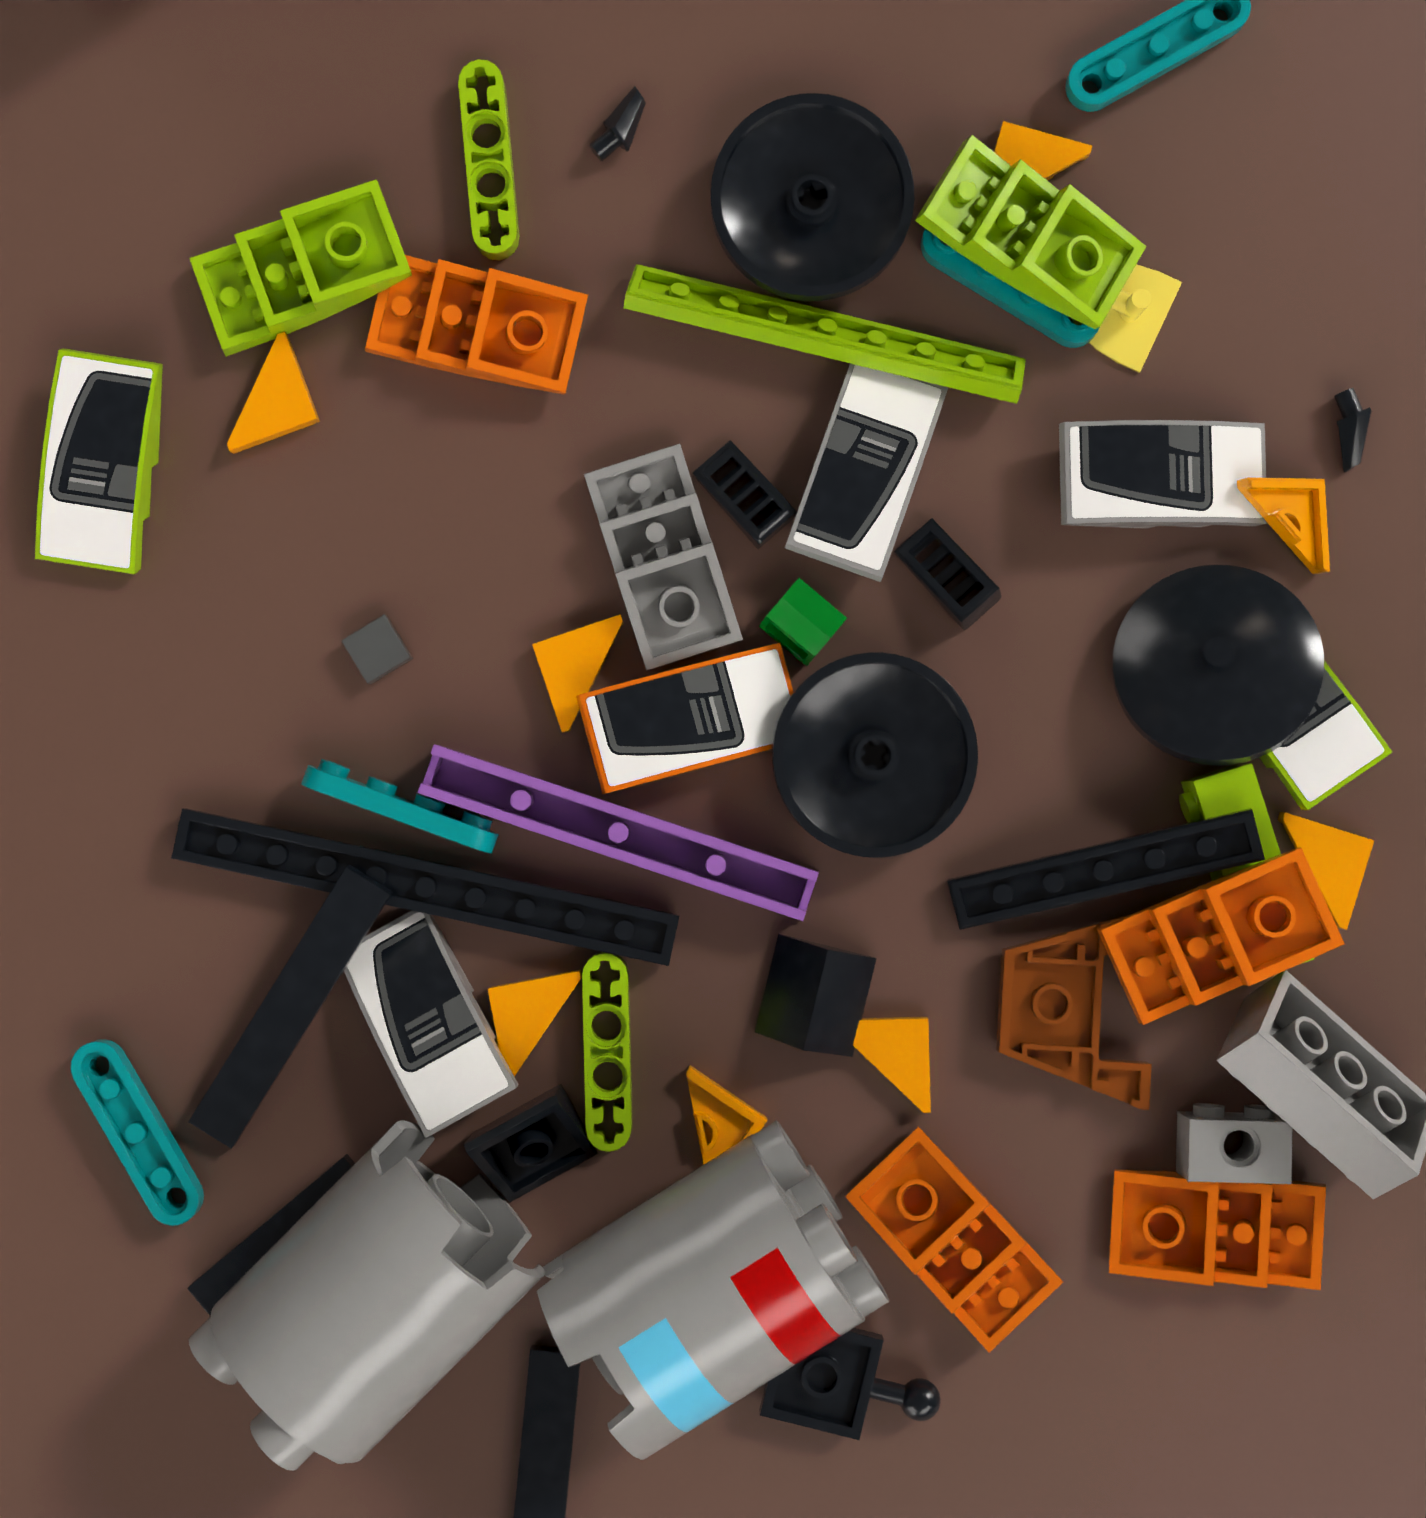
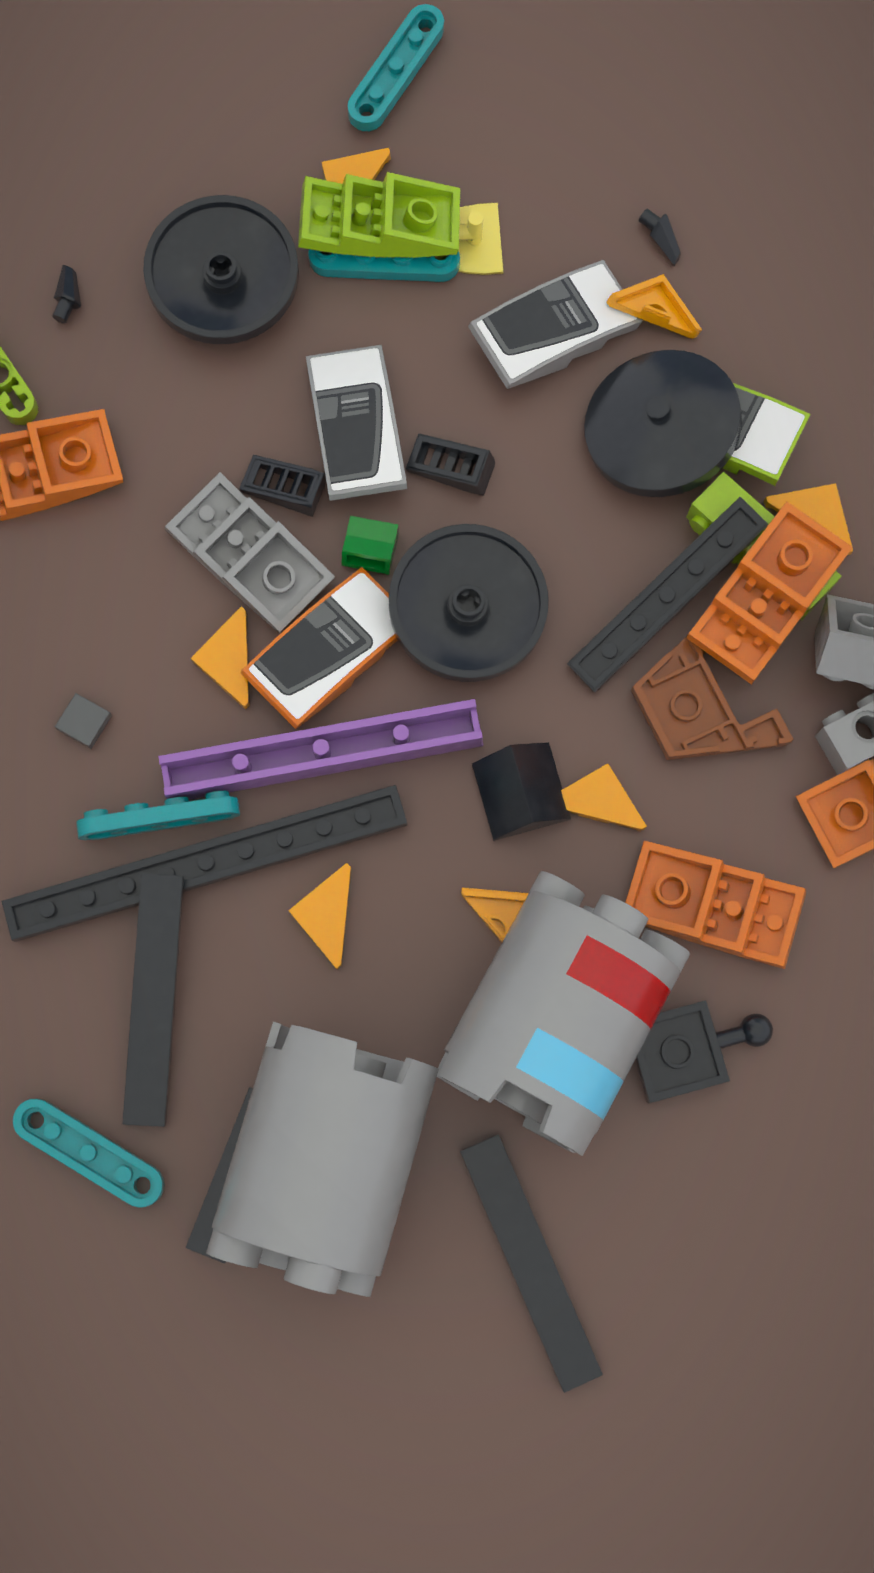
camera: 30 degrees left, 10 degrees down
(427, 1022) = (258, 954): slope -> none
(531, 1144) = (381, 1001): black slope -> none
(602, 1050) = (393, 910): lime beam -> none
(825, 333) = (278, 352): lime tile -> none

